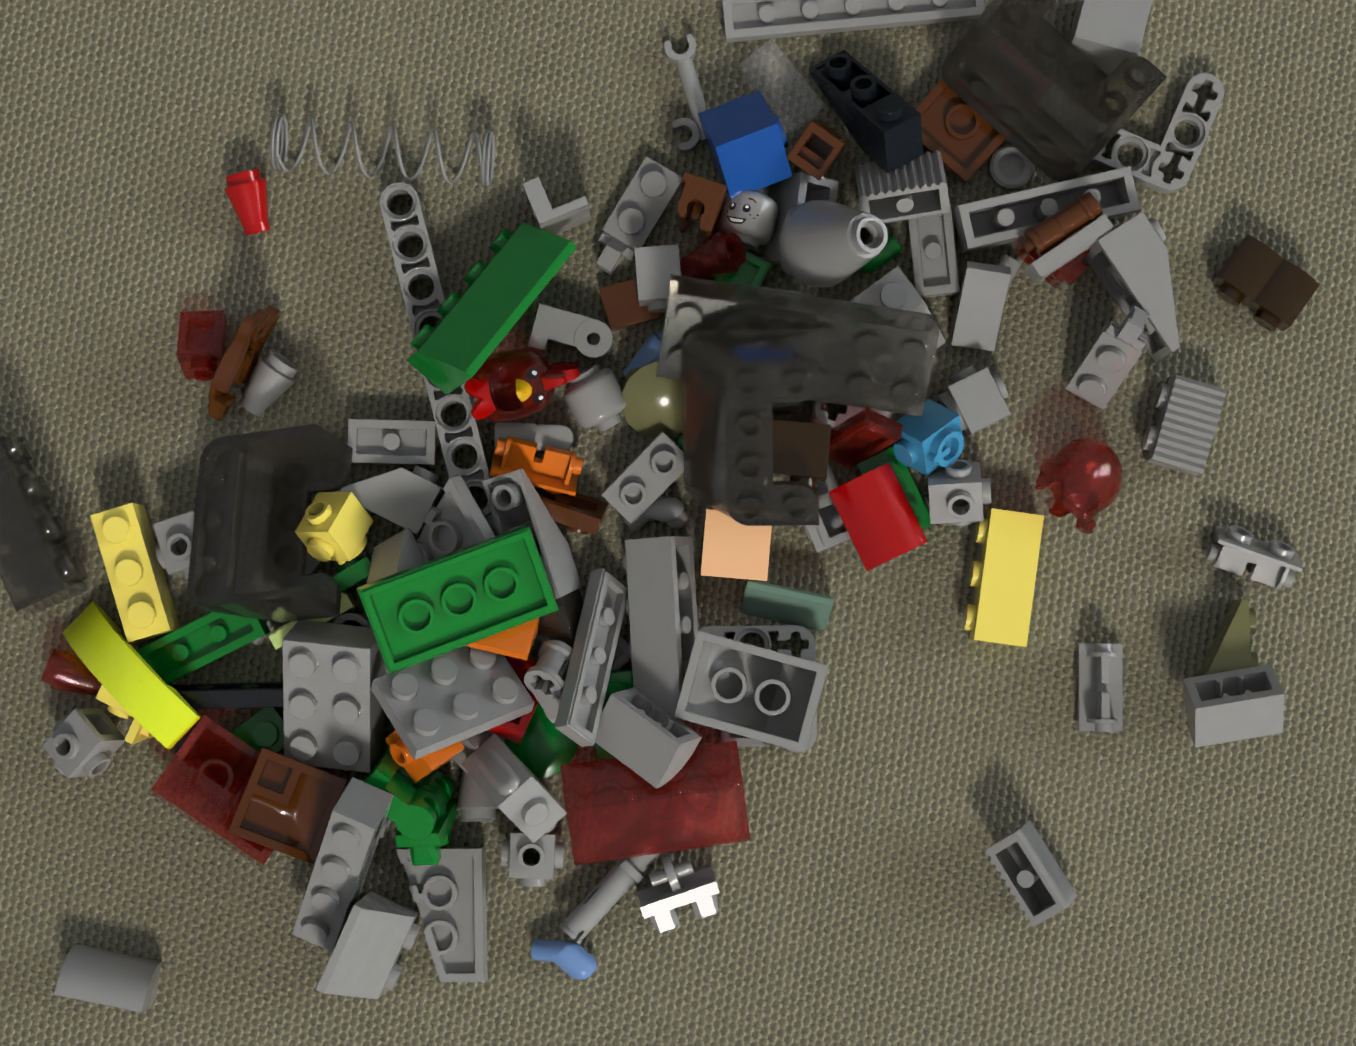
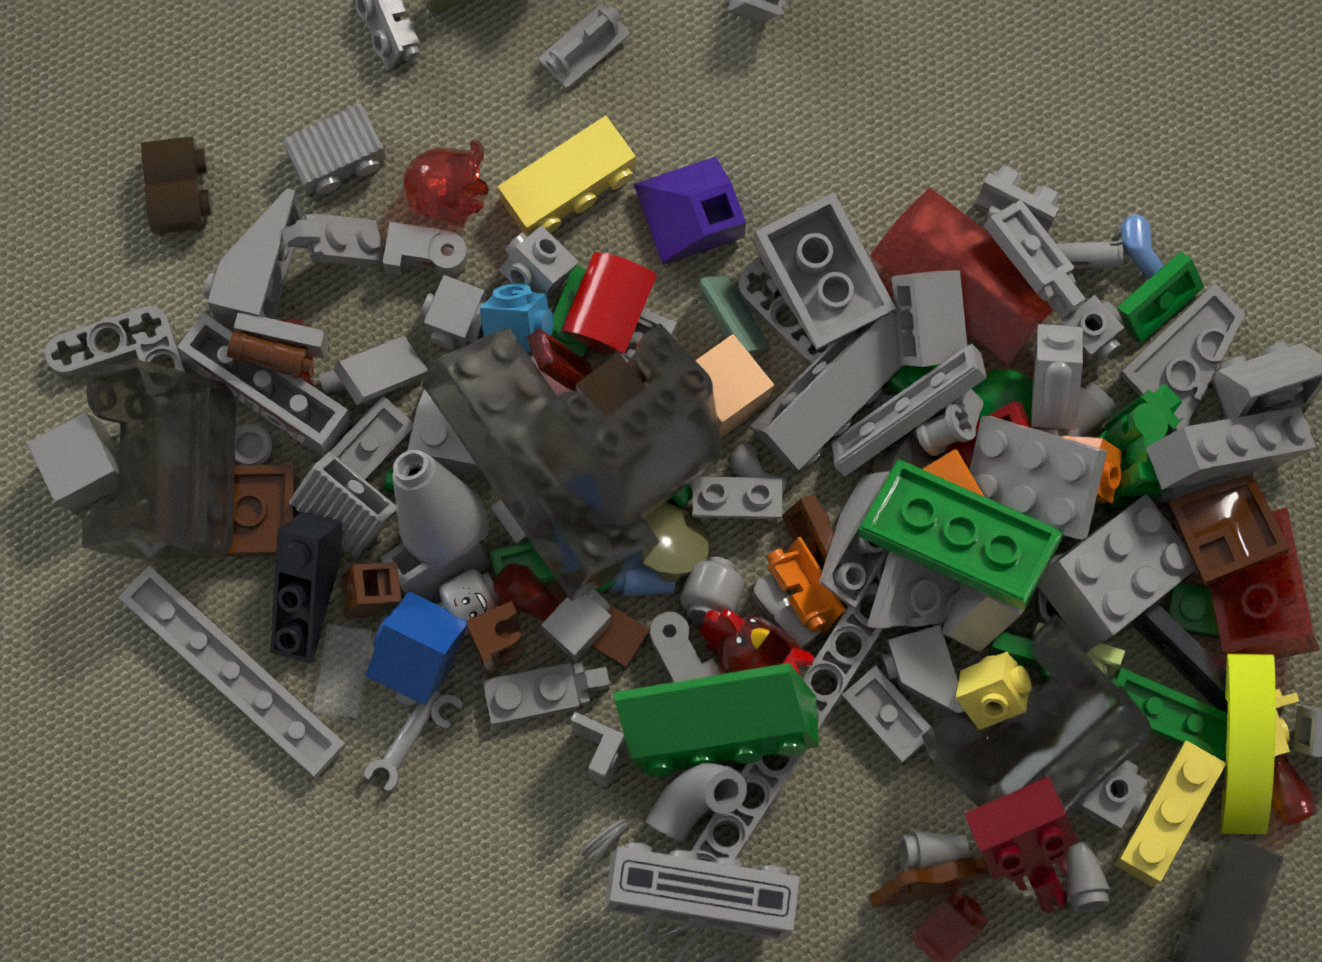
camera: 135 degrees left, 10 degrees down
(149, 472) = (1085, 879): none -> light grey cone
(206, 443) = (1025, 837): none -> dark red brick
(378, 180) = (702, 892): none -> light grey brick
(459, 245) = (693, 794): none -> light grey cylinder
(511, 932) = (1160, 297): none -> green plate
(619, 861) = (1036, 257): none -> light grey hinge
(899, 647) = (691, 210): none -> dark purple slope
(1037, 432) = (423, 248): none -> light grey leg

